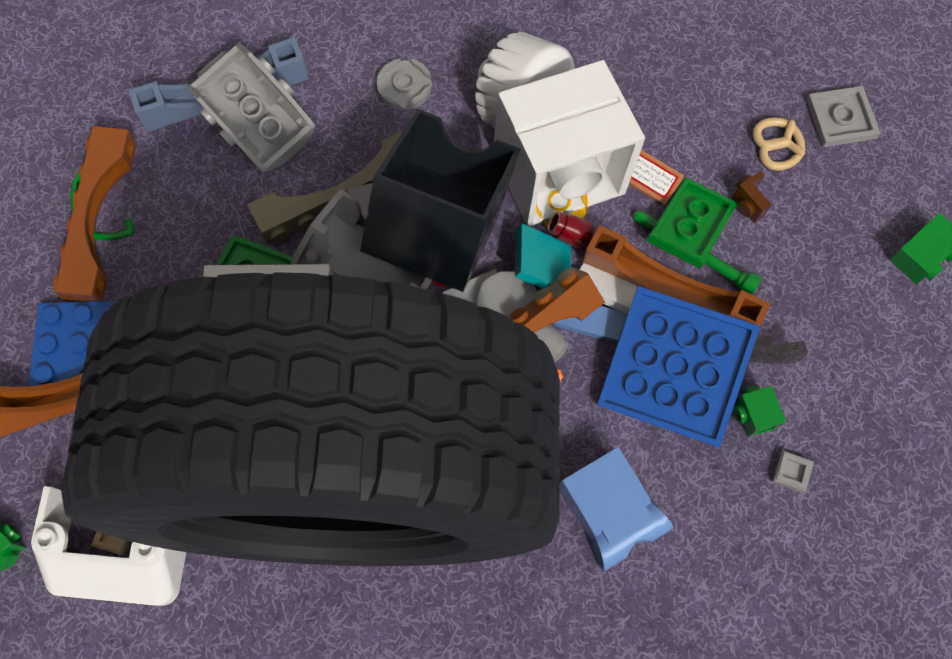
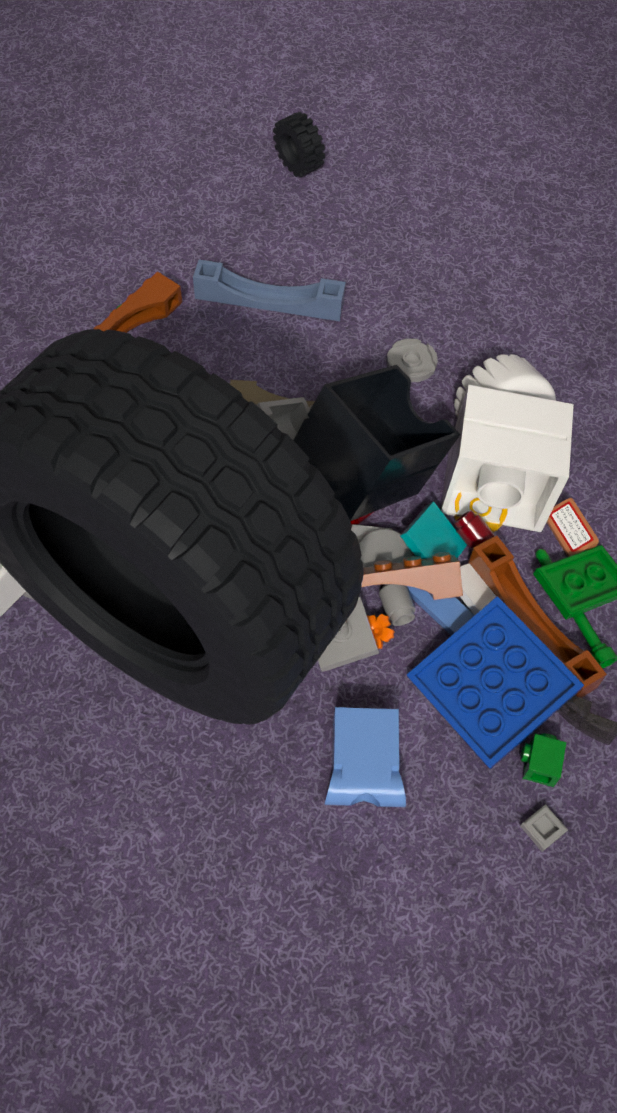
camera: 30 degrees right, 10 degrees down
(252, 107) = (279, 317): light grey slope -> none

